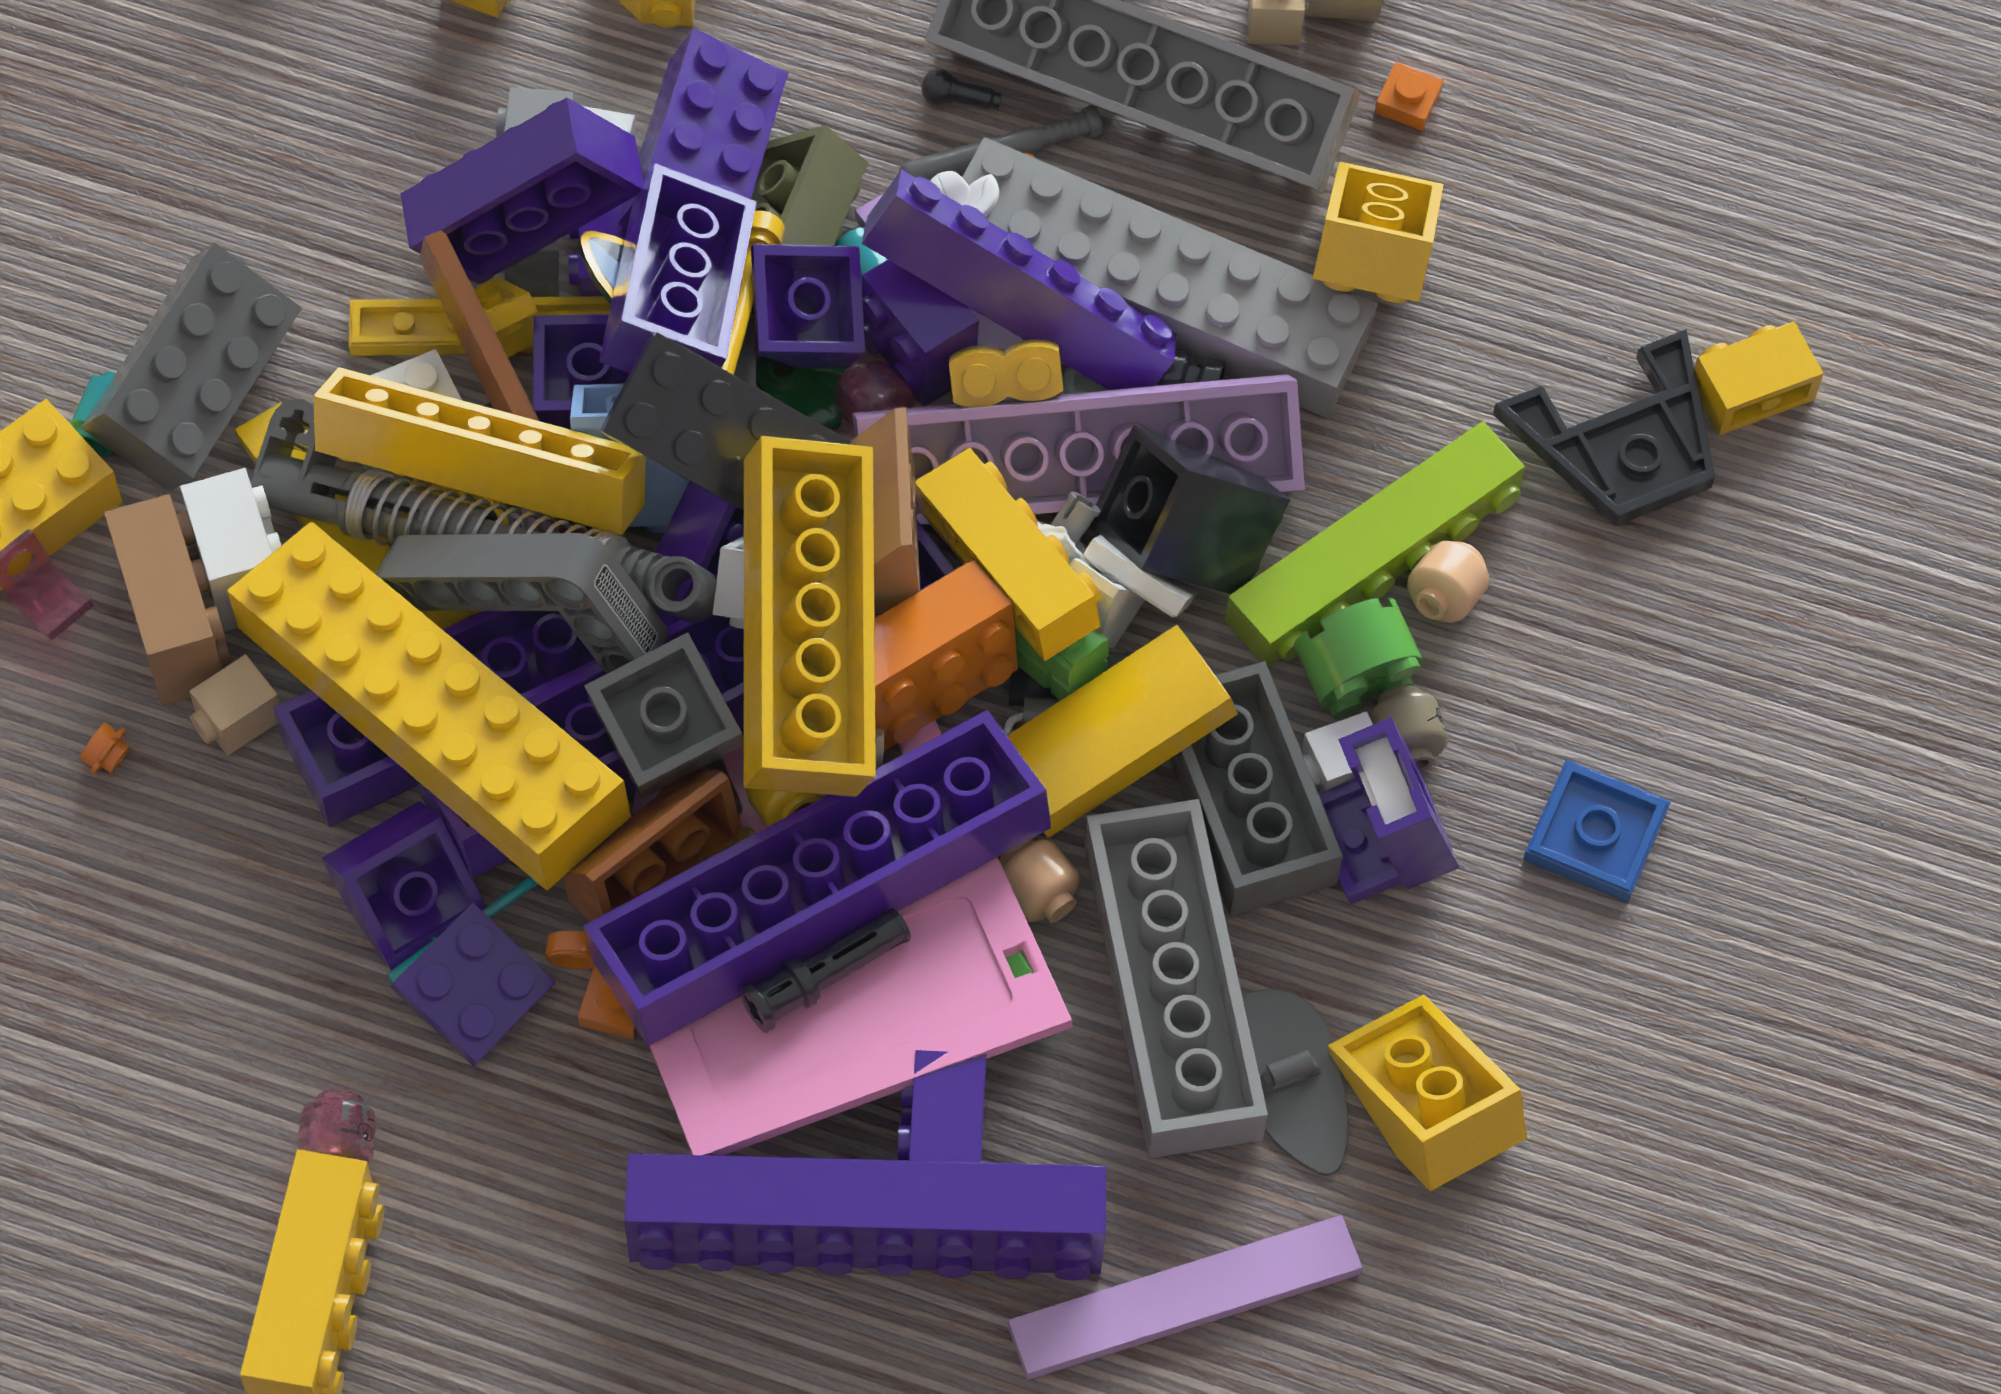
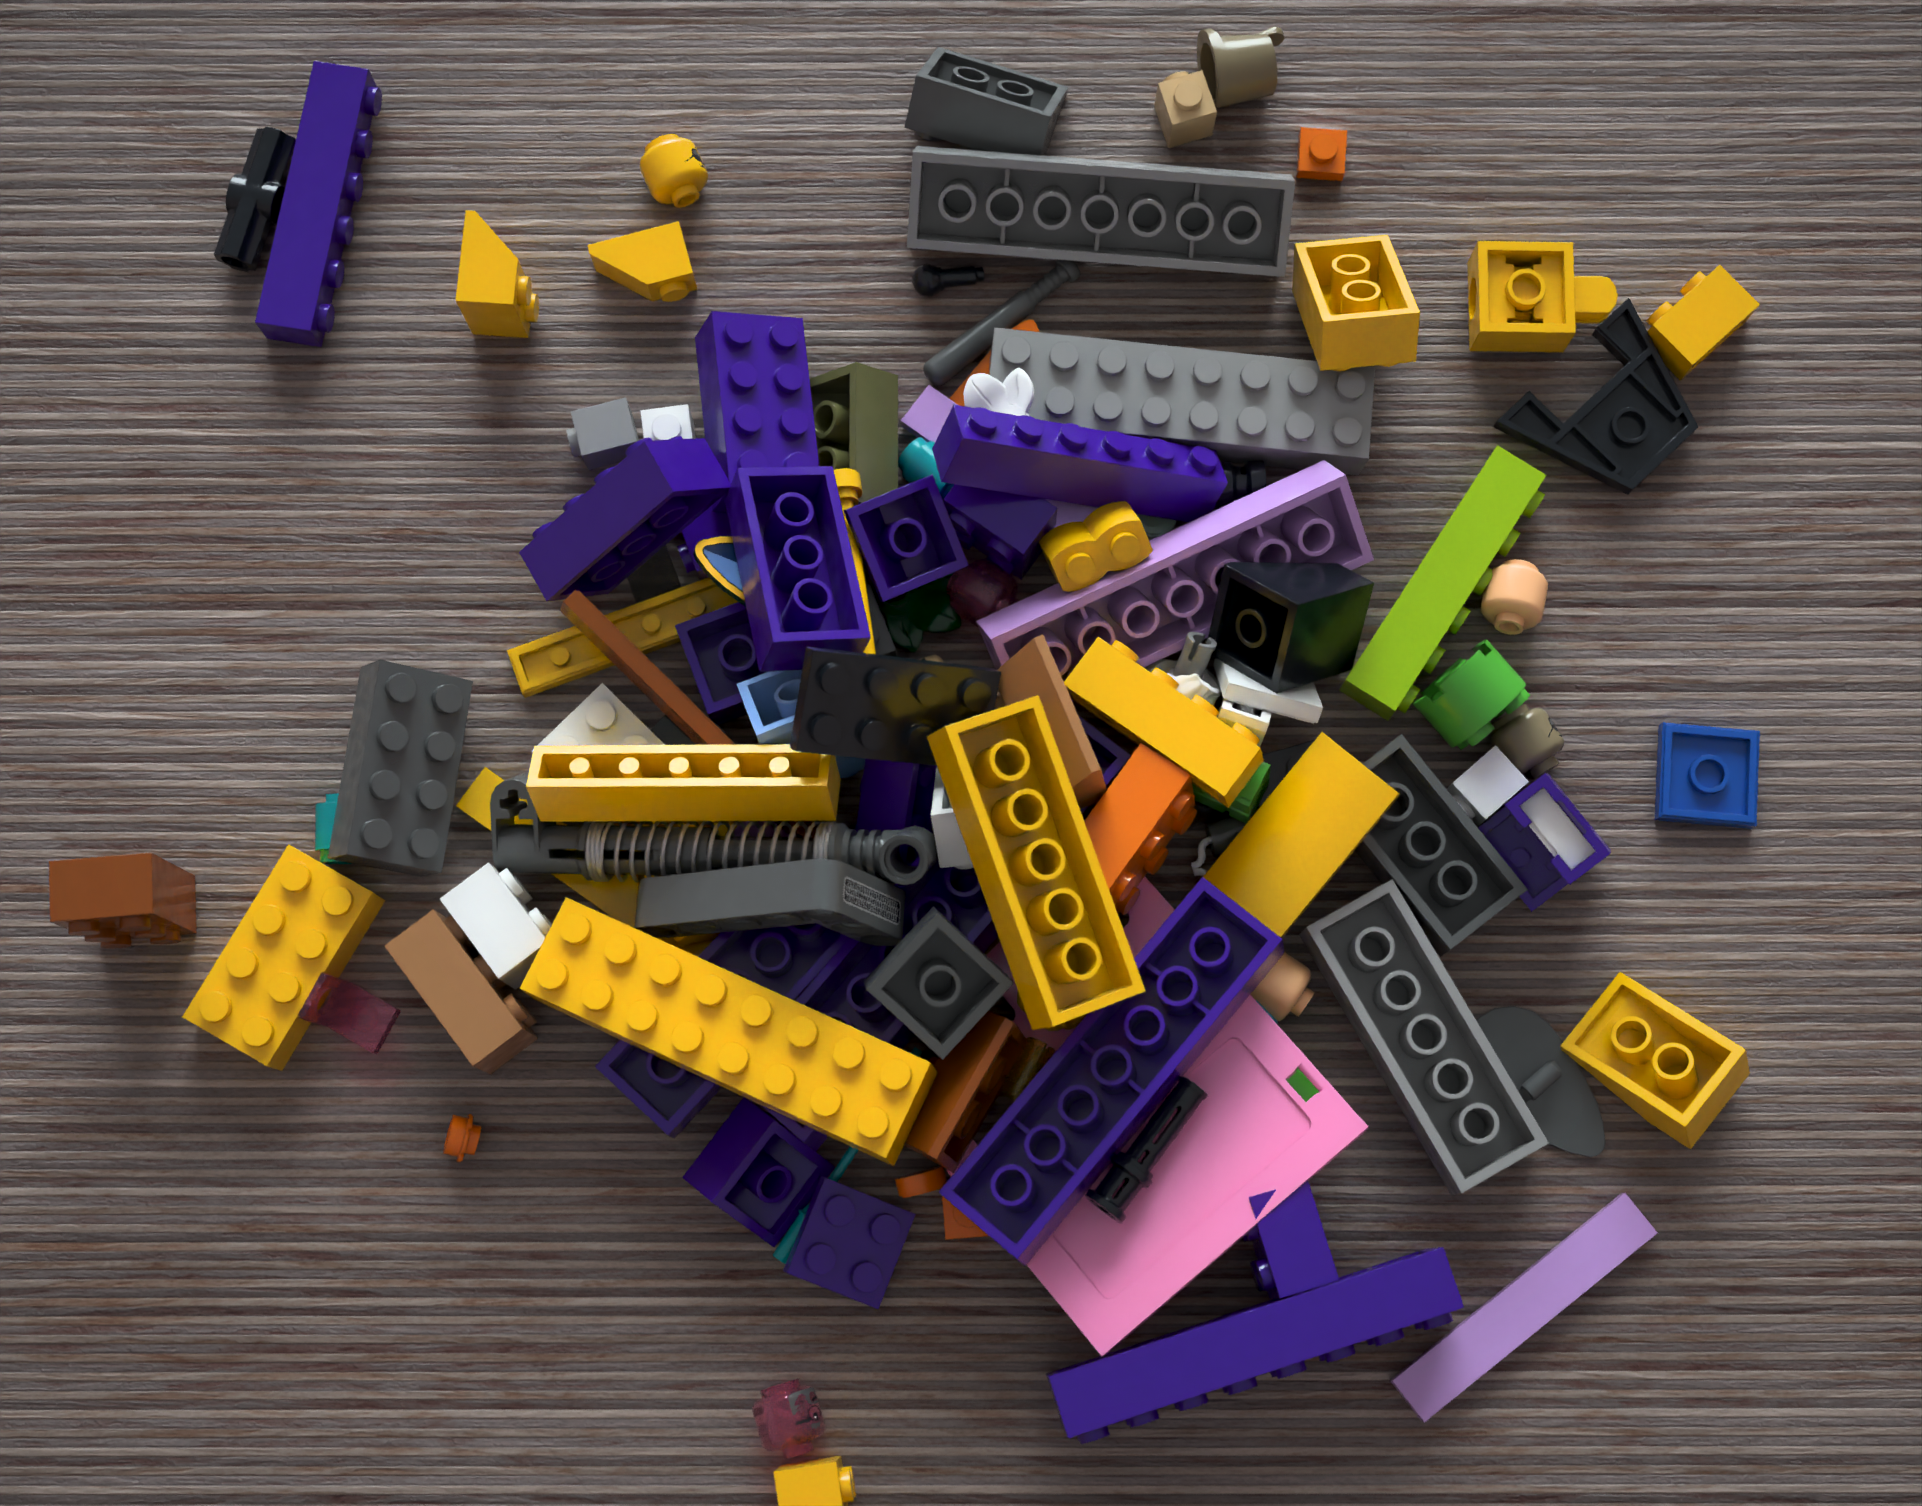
camera: 15 degrees left, 15 degrees up
(234, 706) = (555, 1065): tan brick -> none
(508, 313) = (643, 624): yellow slope -> none
(1590, 274) = (1540, 284): none -> yellow brick

